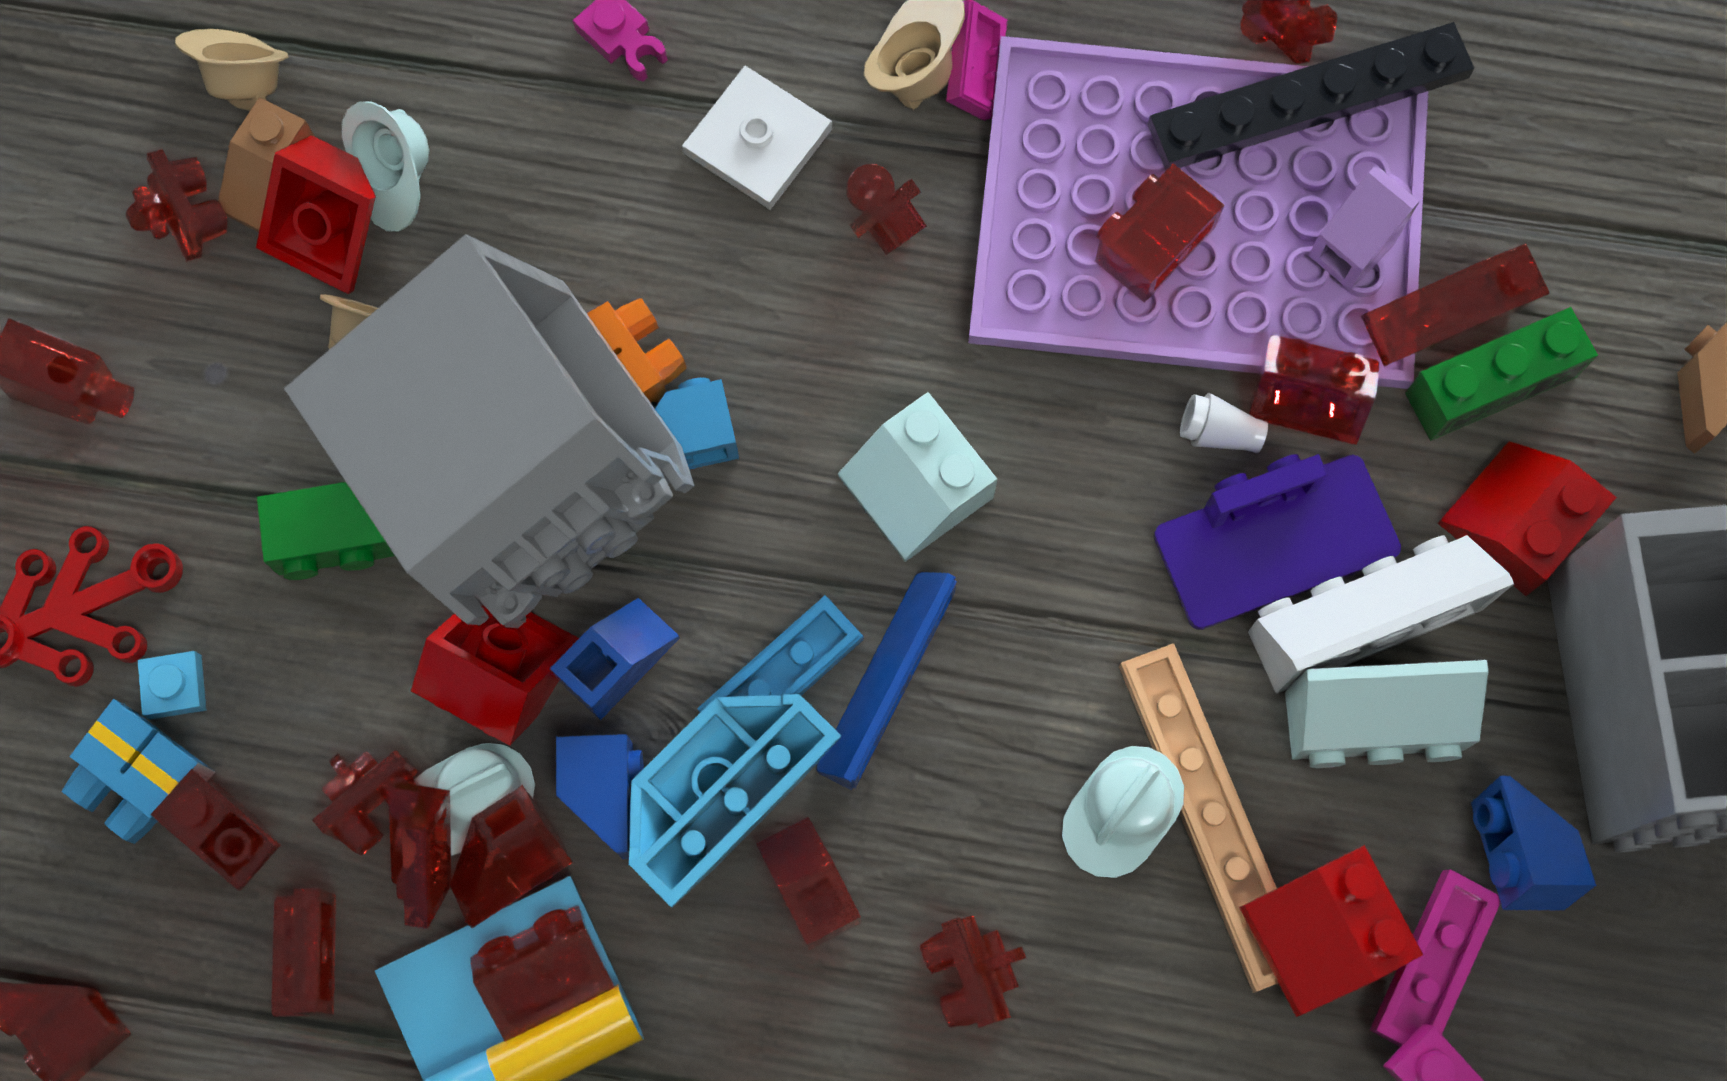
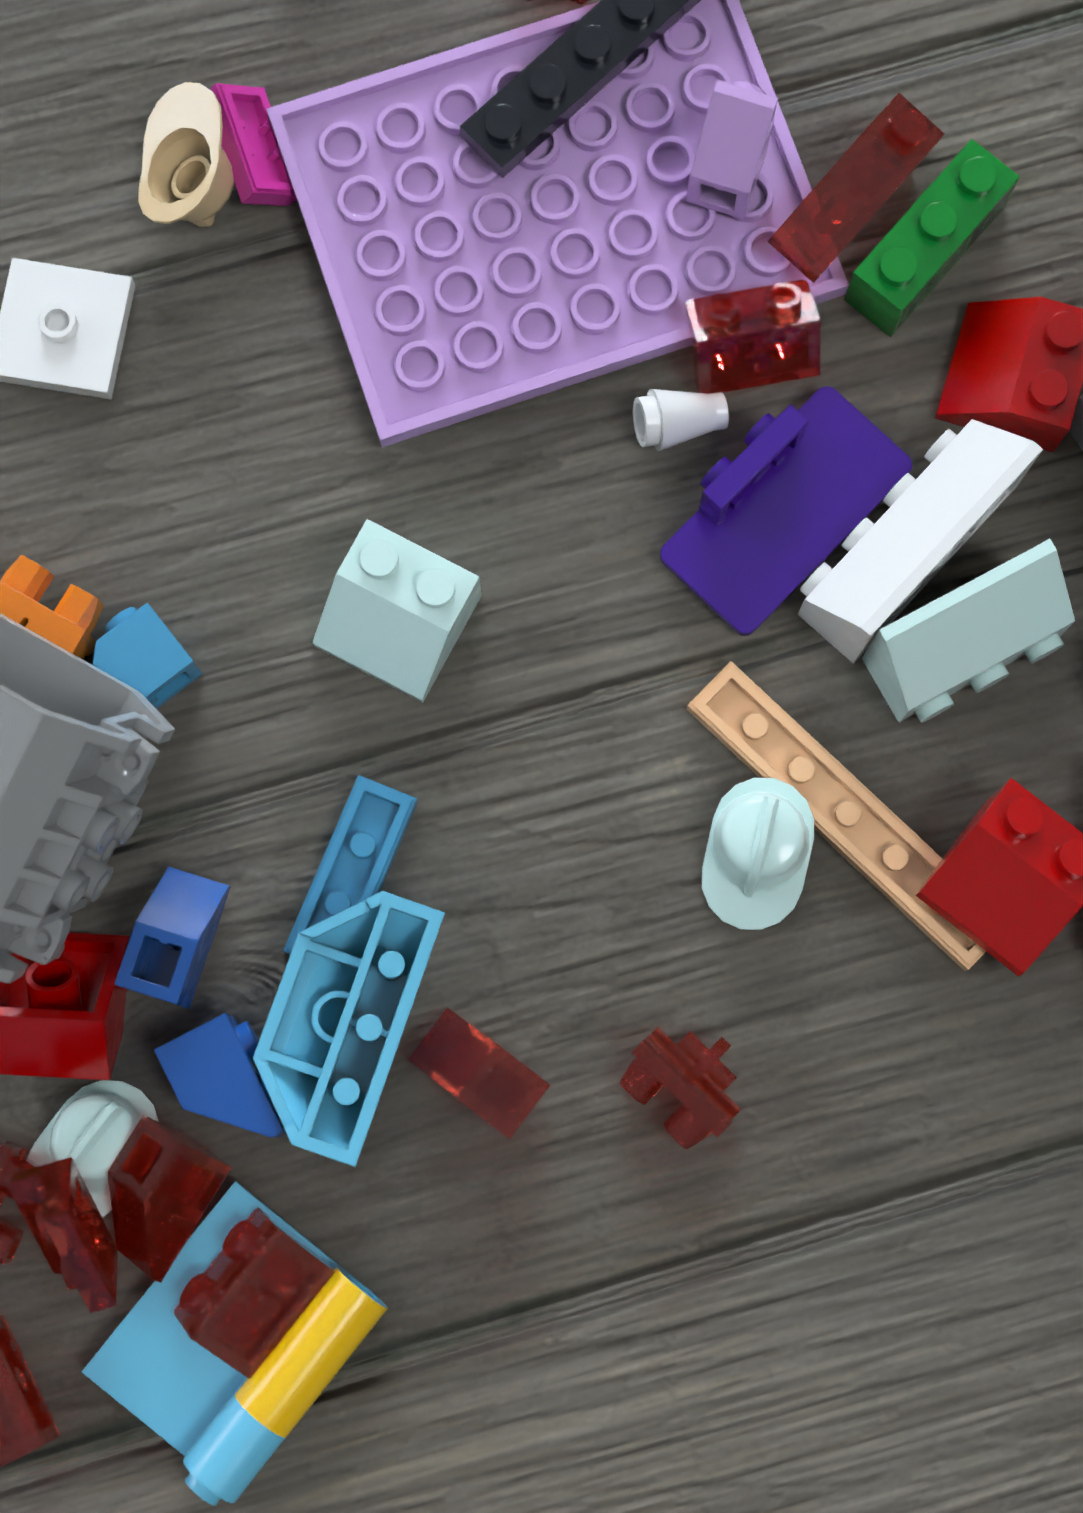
camera: 25 degrees left, 5 degrees up
(885, 211) = (235, 347): clear red hips -> none
(887, 677) = (460, 827): blue slope -> none
(1157, 232) = (523, 245): clear red brick -> none

